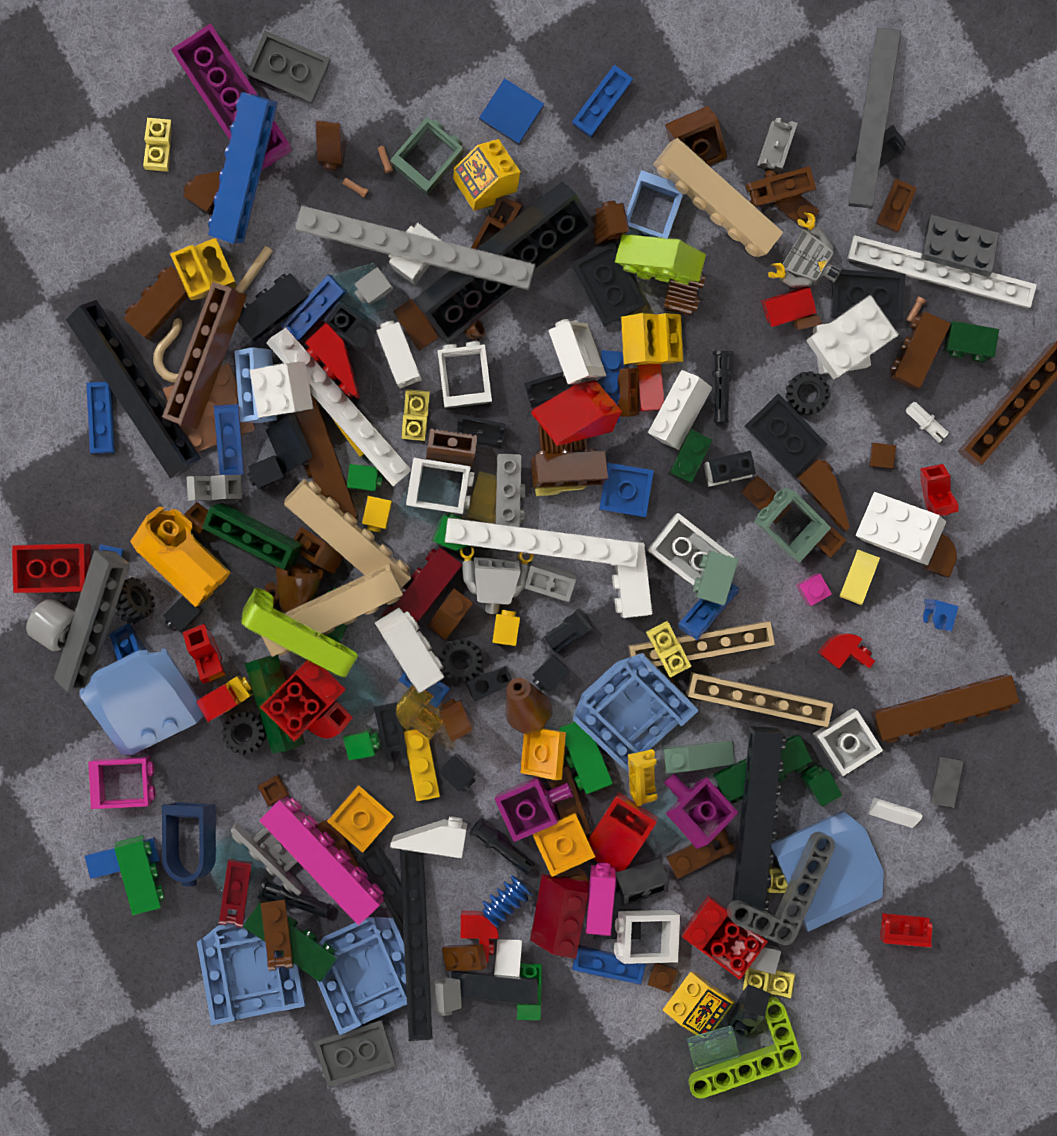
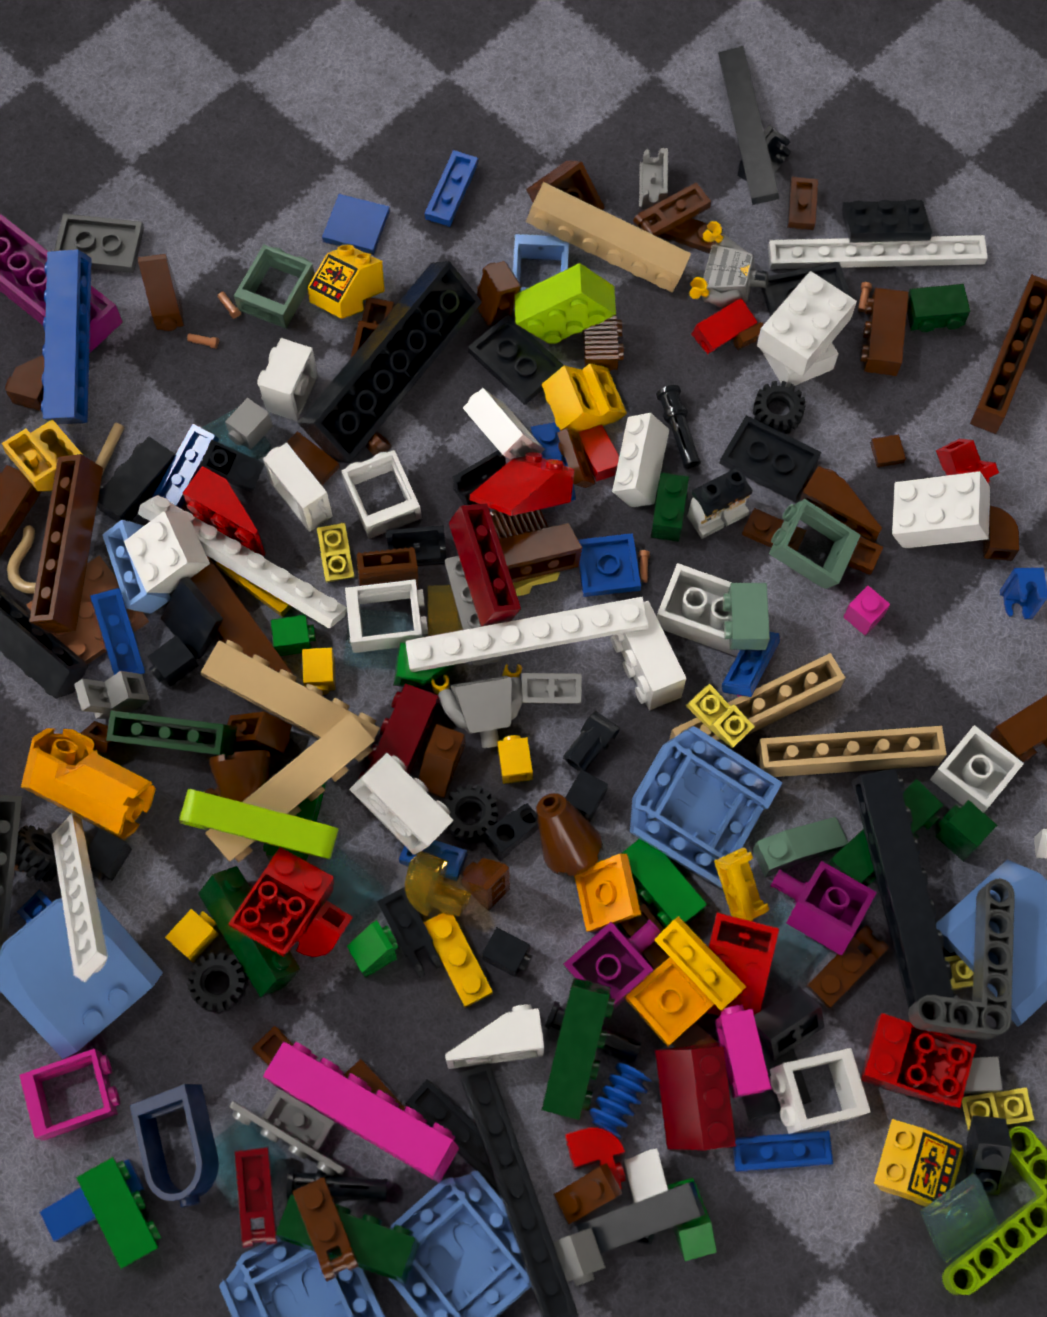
camera: 15 degrees left, 20 degrees down
(155, 661) = (79, 899): none -> white plate
(205, 652) = (142, 892): red brick -> none
(218, 702) = (173, 945): red brick -> none
(360, 818) = (397, 1049): light orange plate -> none
(415, 247) = (284, 360): light grey plate -> none
(486, 860) = (576, 1049): none -> dark green brick
(525, 476) = (484, 564): none -> dark red brick
(591, 828) = (699, 963): none -> yellow plate
(654, 497) = (644, 555): none -> nougat piece
(662, 977) = (857, 1146): reddish brown plate -> none
(841, 646) = (930, 663): red brick -> none
(859, 577) = (914, 584): light yellow slope -> none
(926, 421) = (923, 401): white axle -> none

